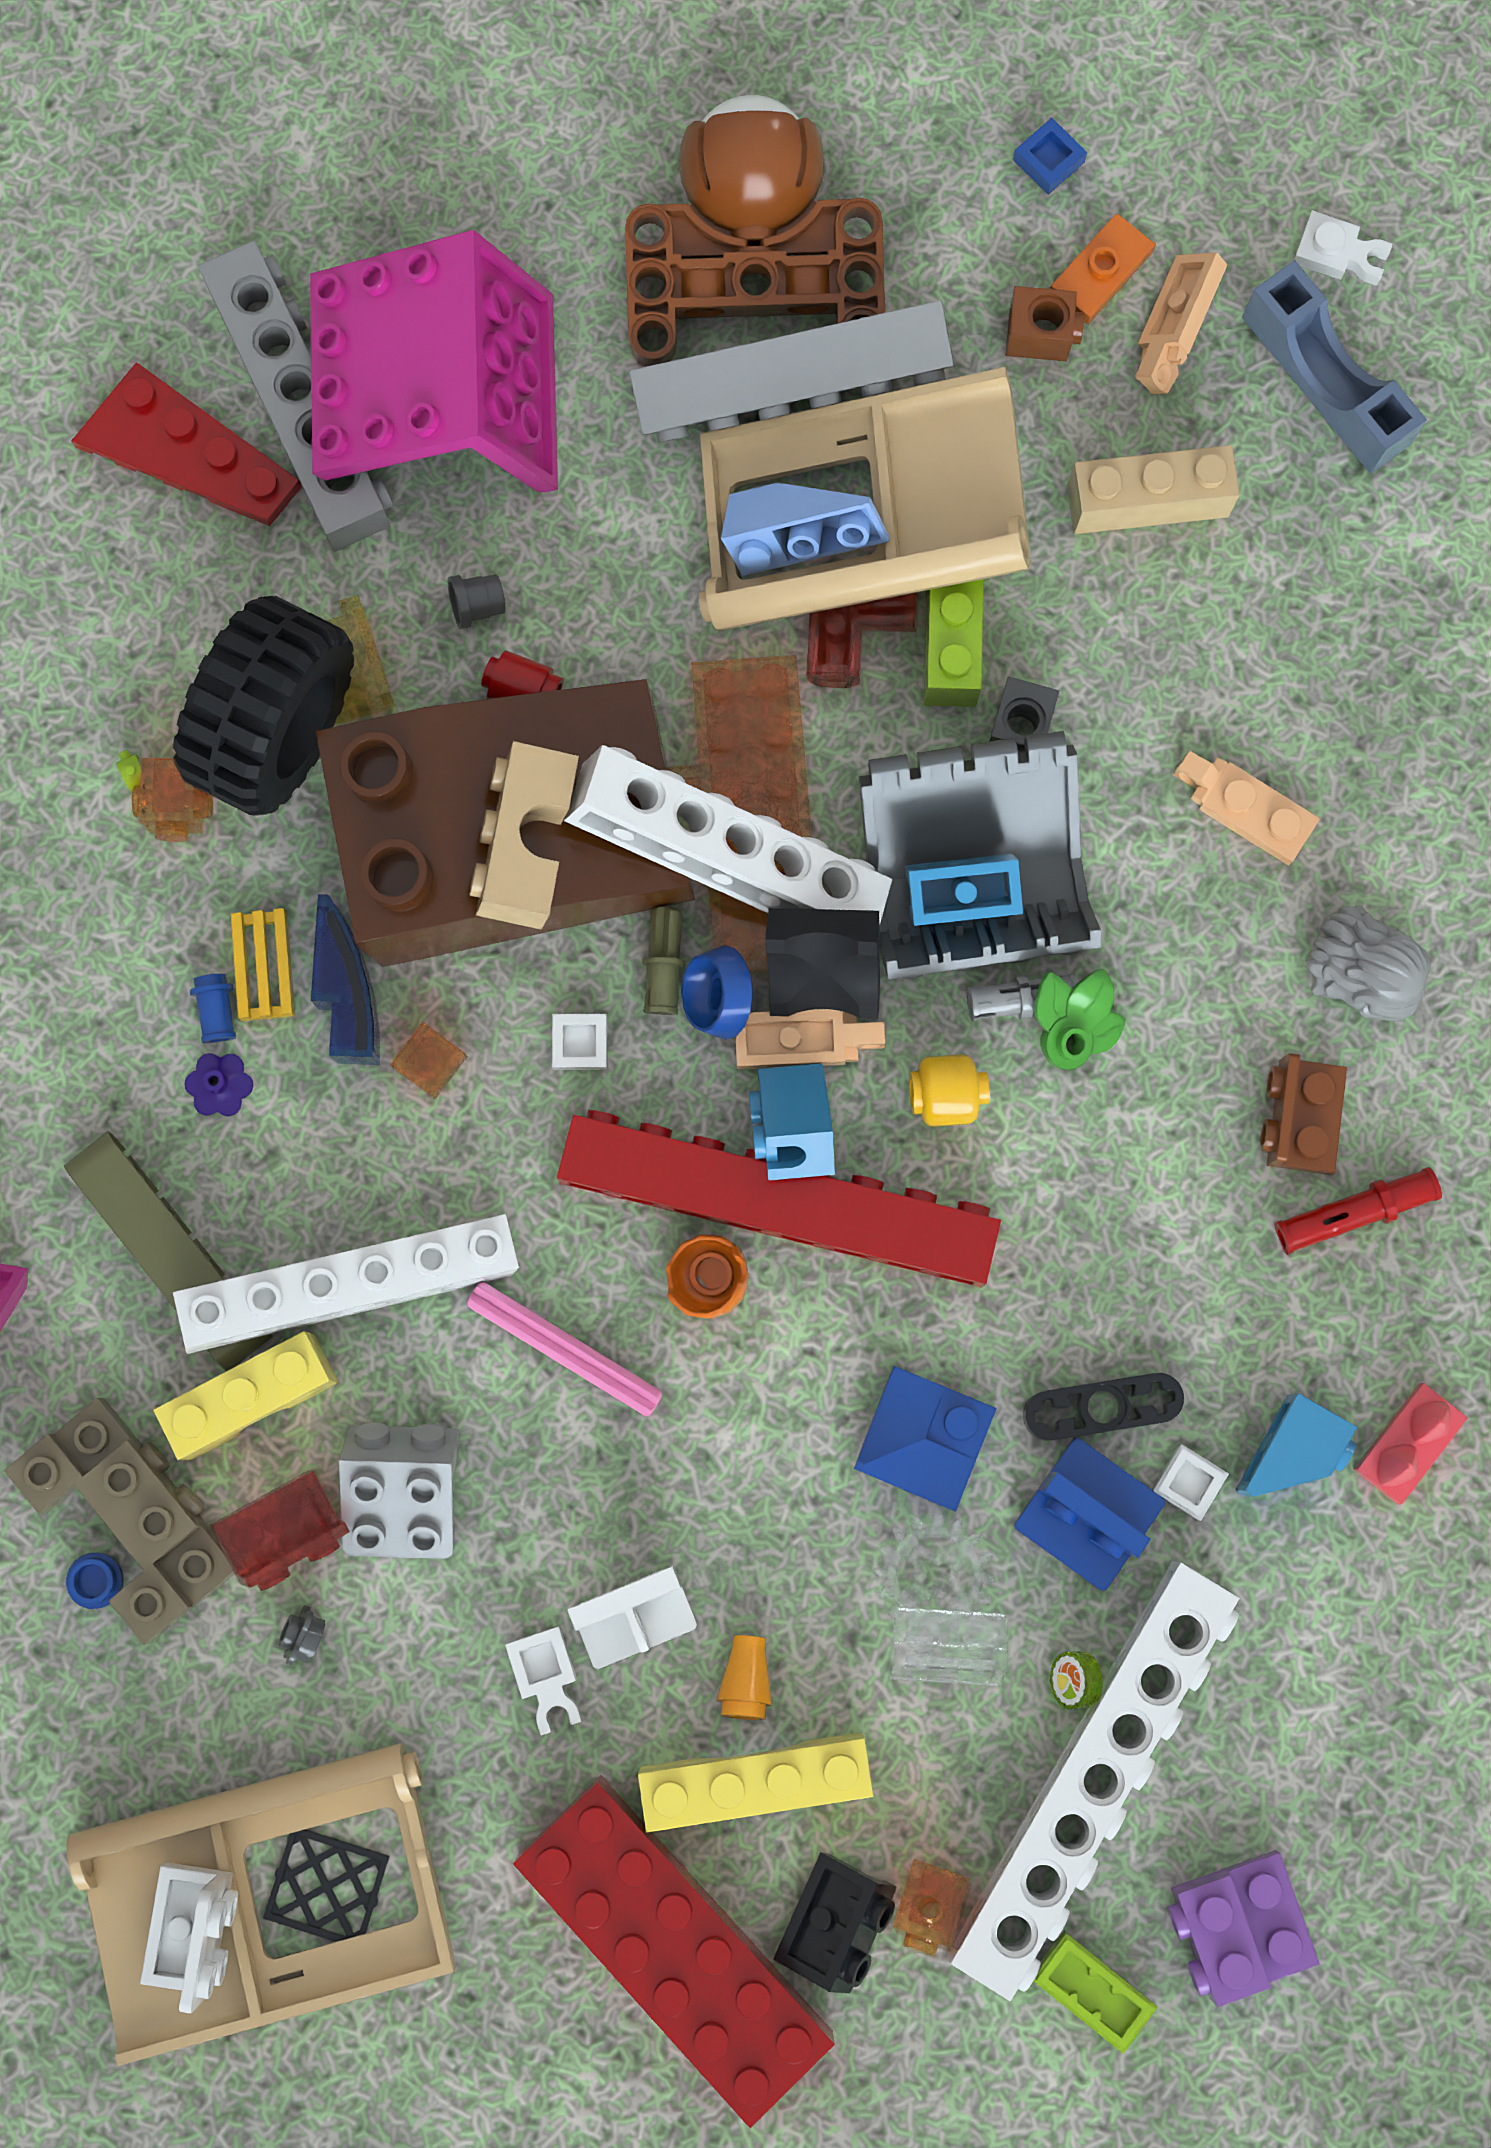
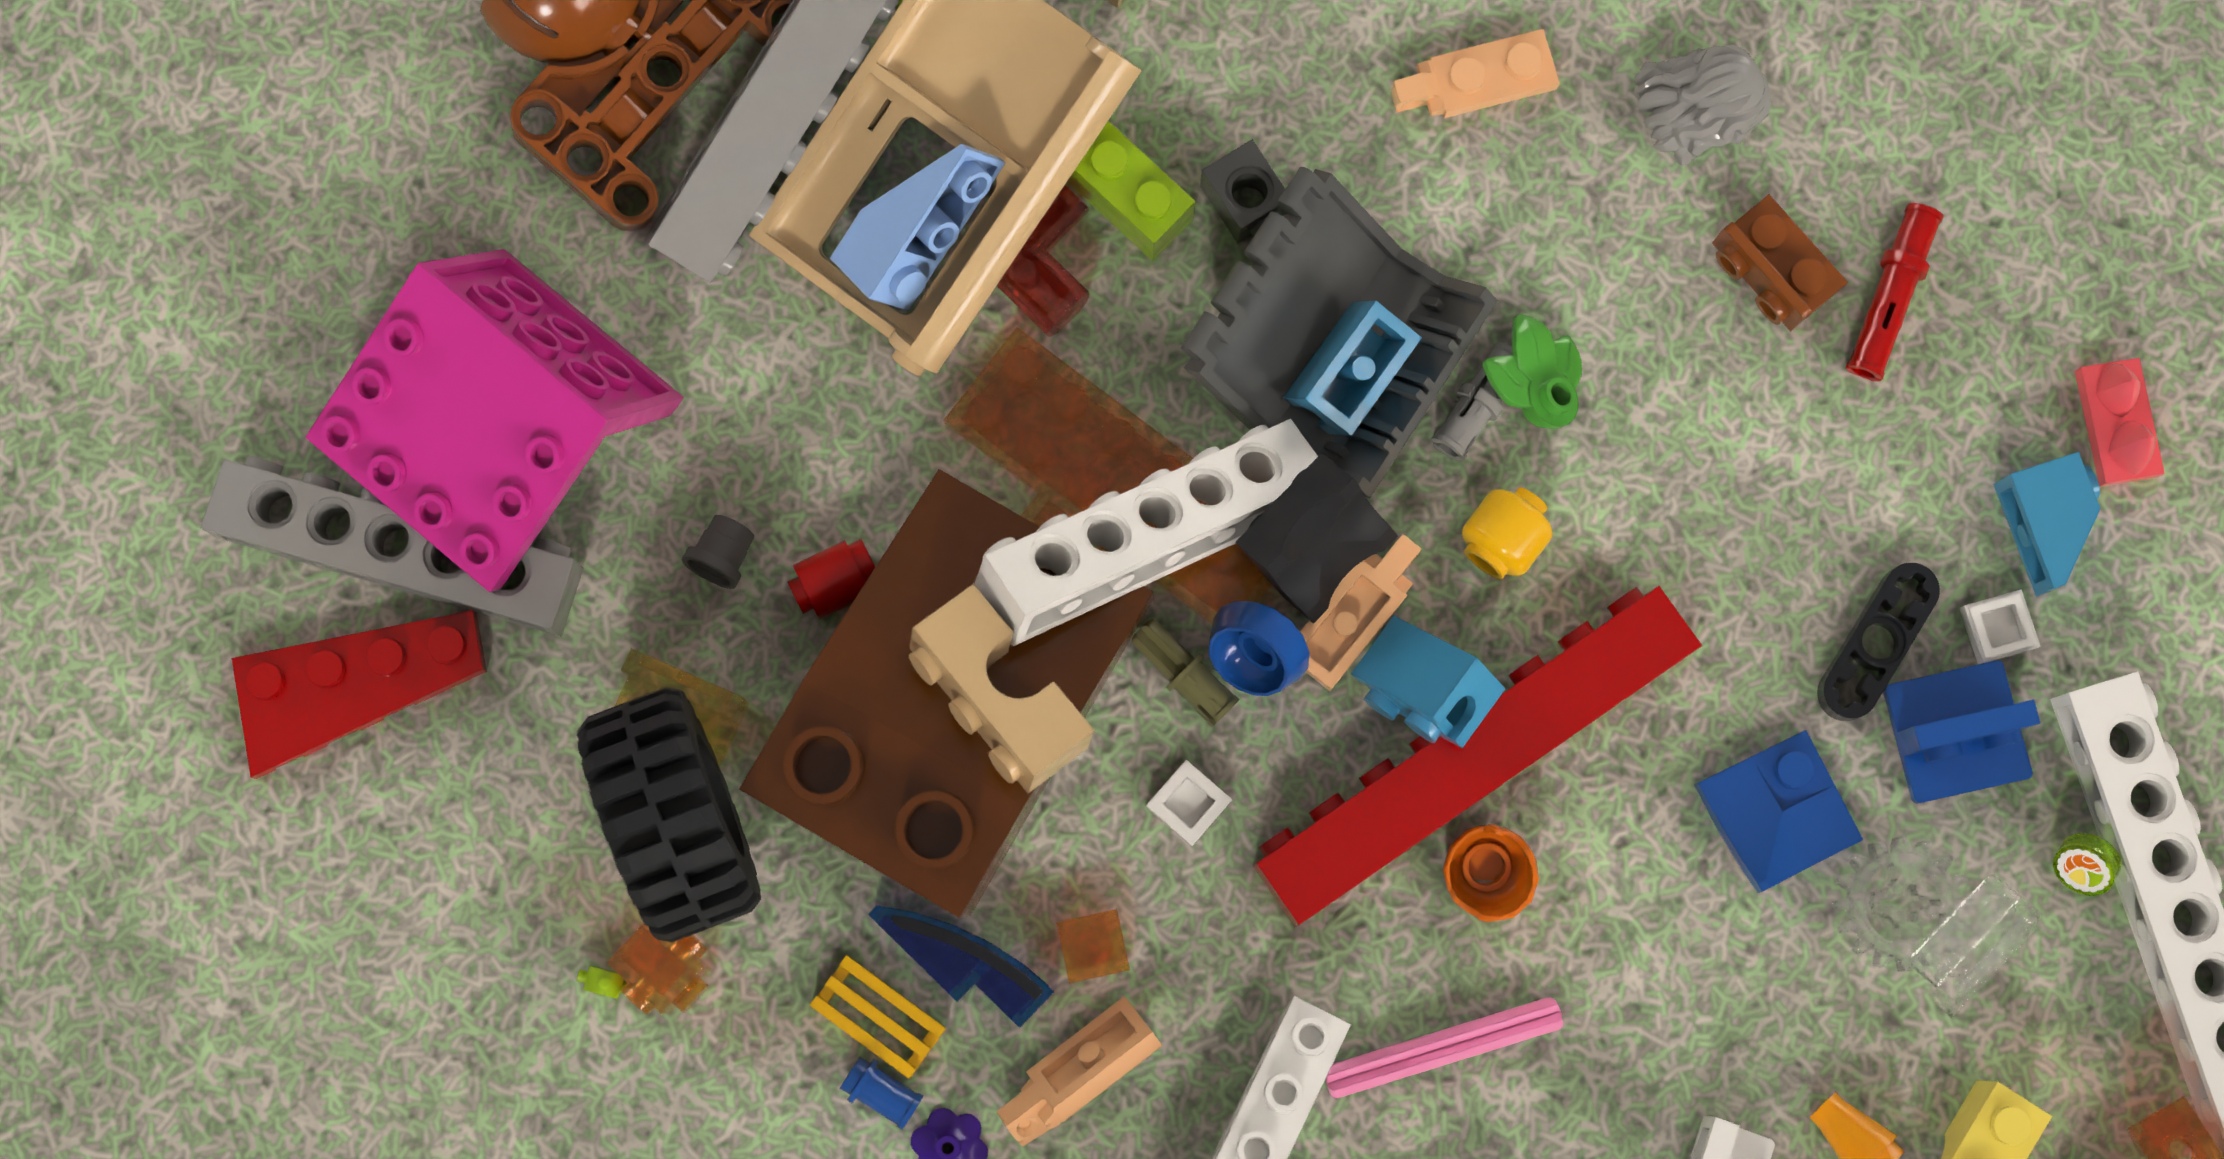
camera: 50 degrees left, 0 degrees up
(338, 1122) = (1079, 1071): none -> light nougat hinge

